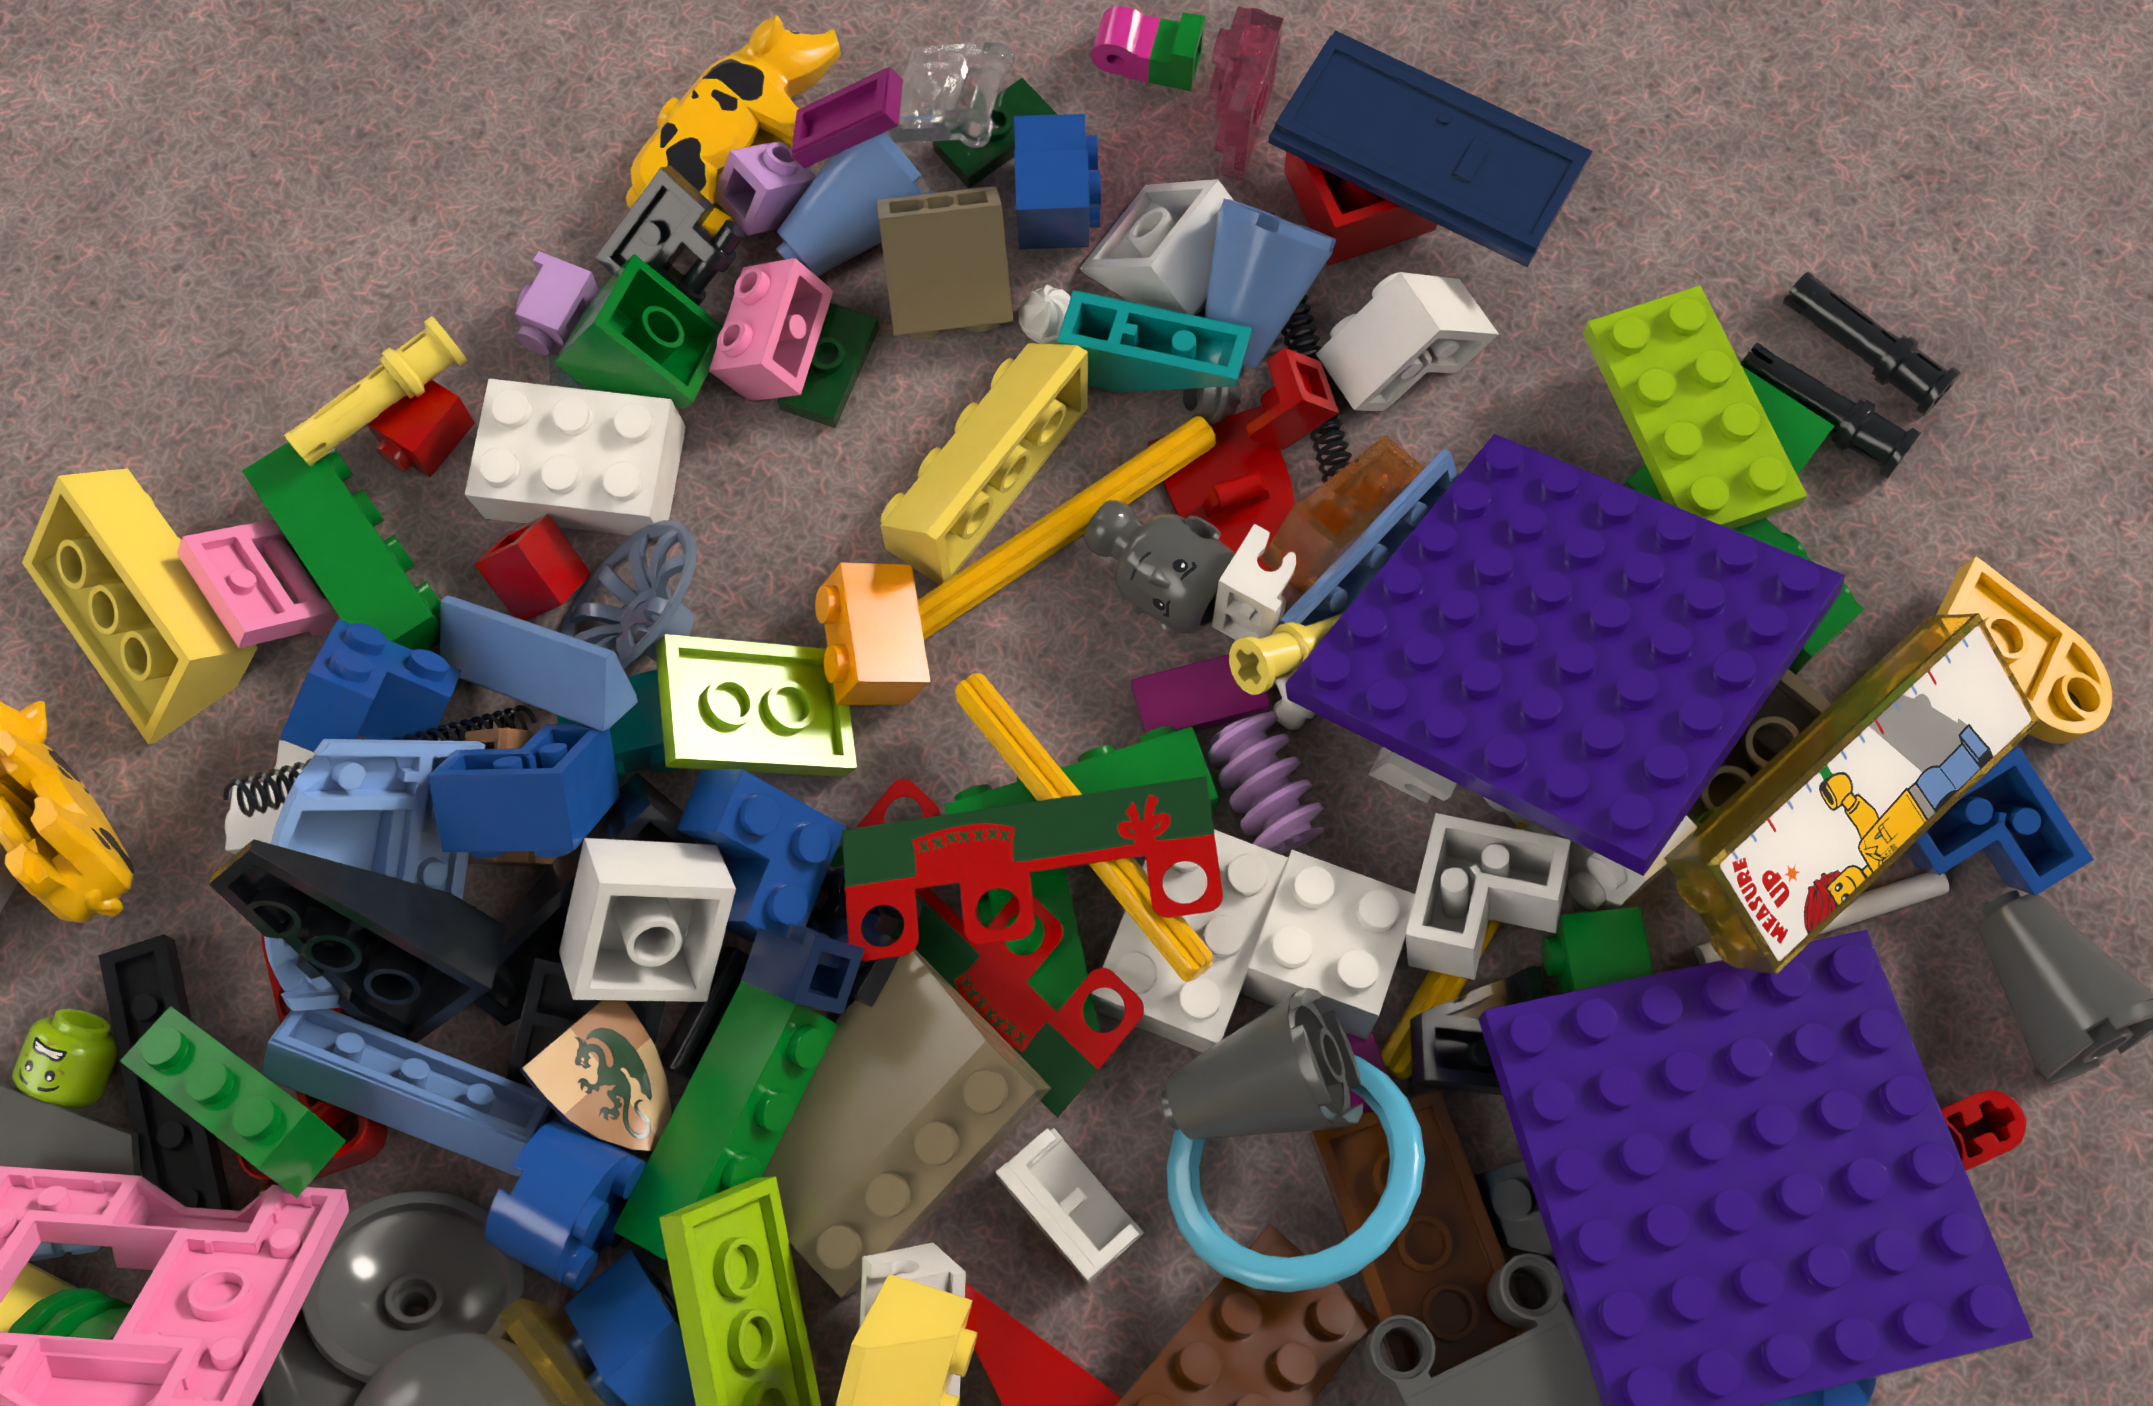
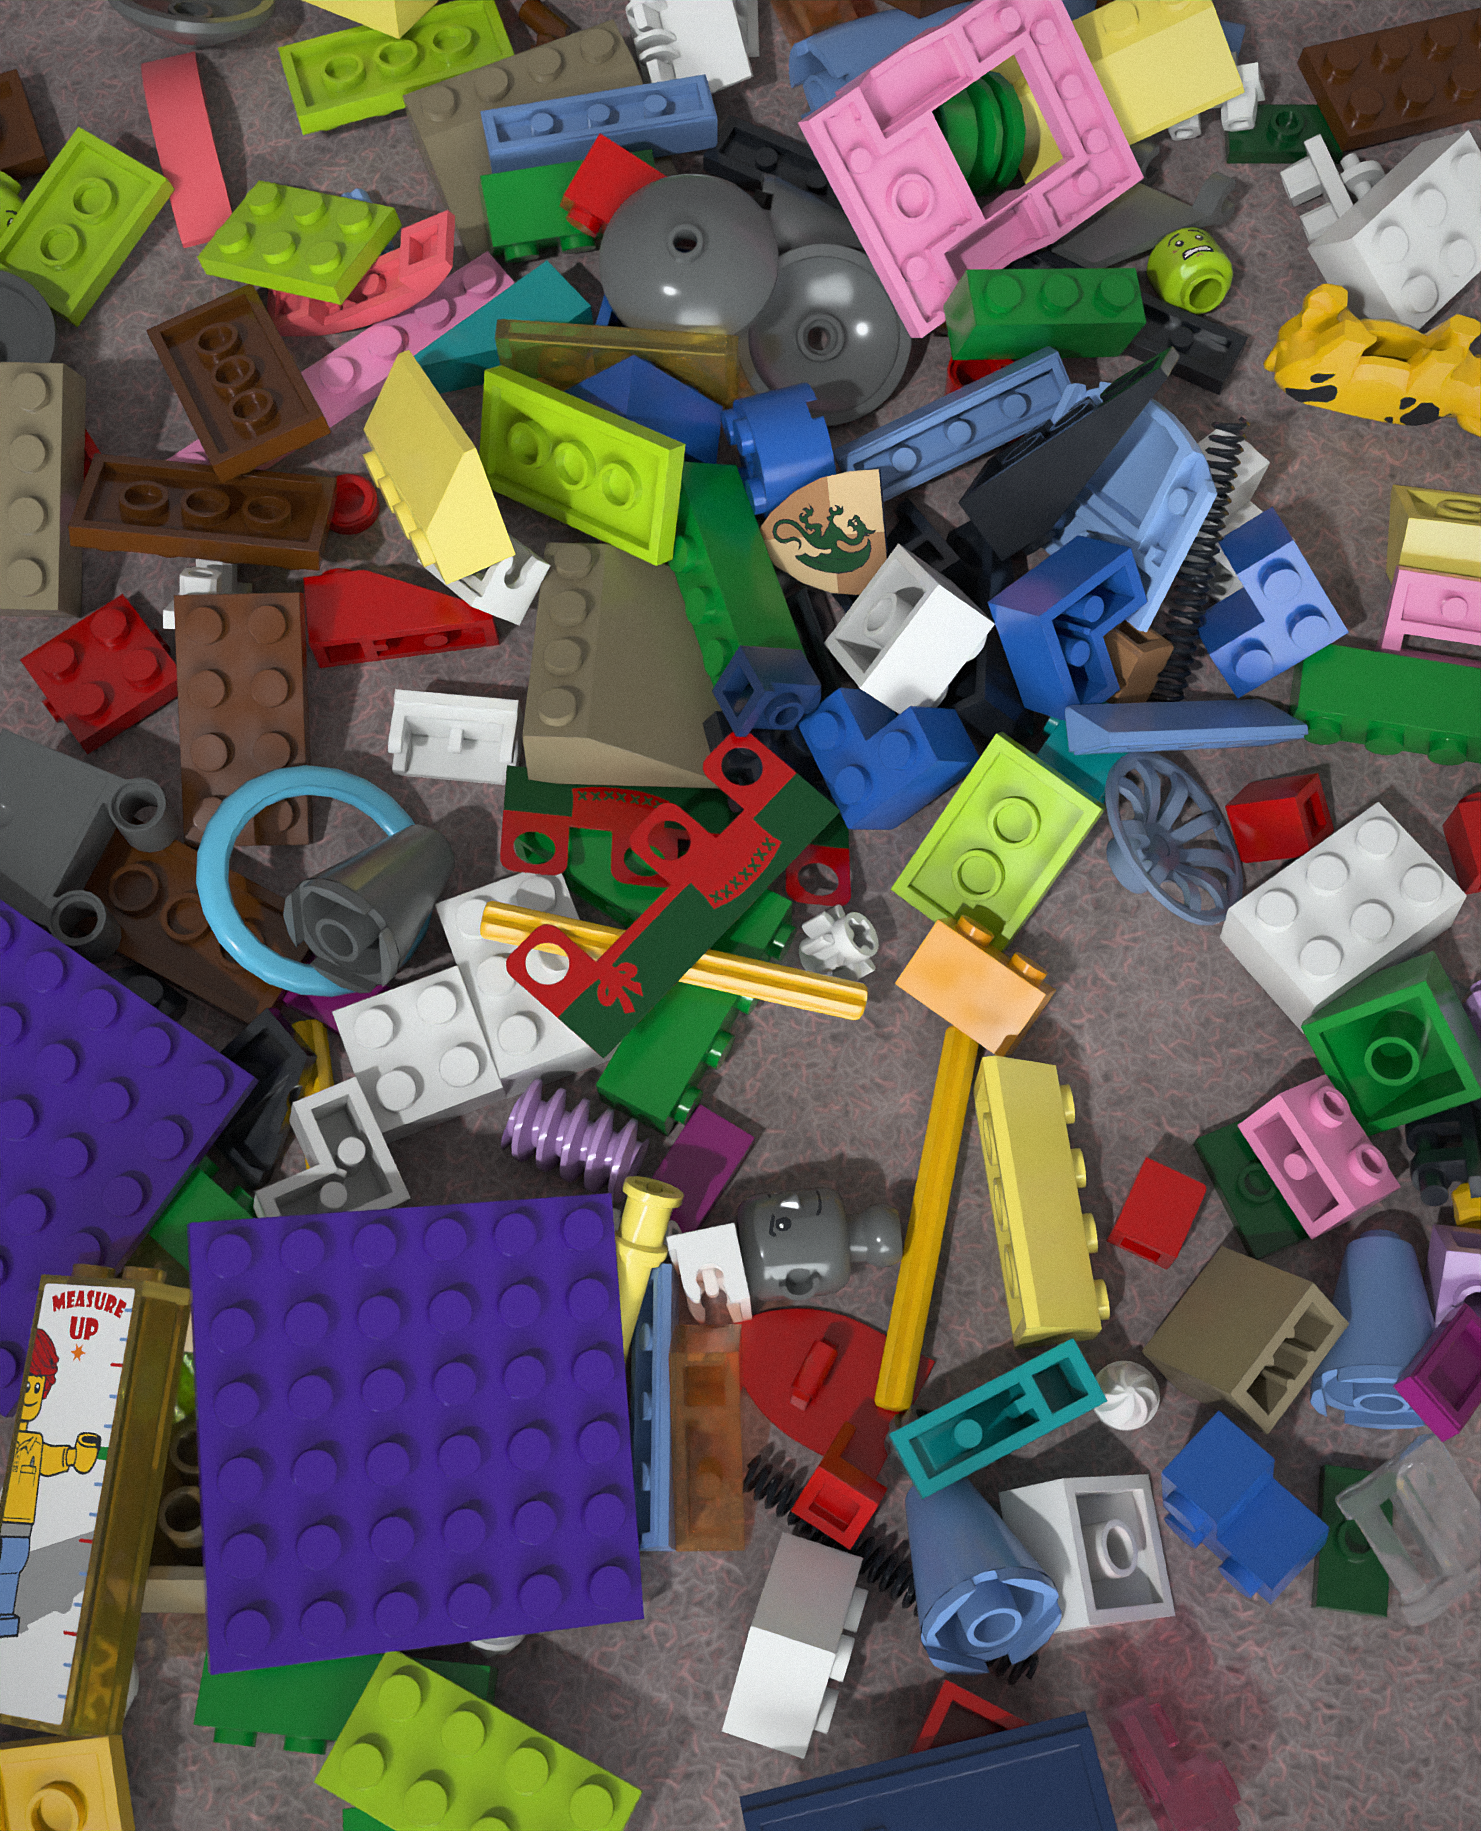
camera: 140 degrees right, 0 degrees up
(913, 392) = (1157, 1213): none -> red panel
(939, 753) = (839, 944): none -> white gear
(1149, 47) = (1310, 1763): leg -> none

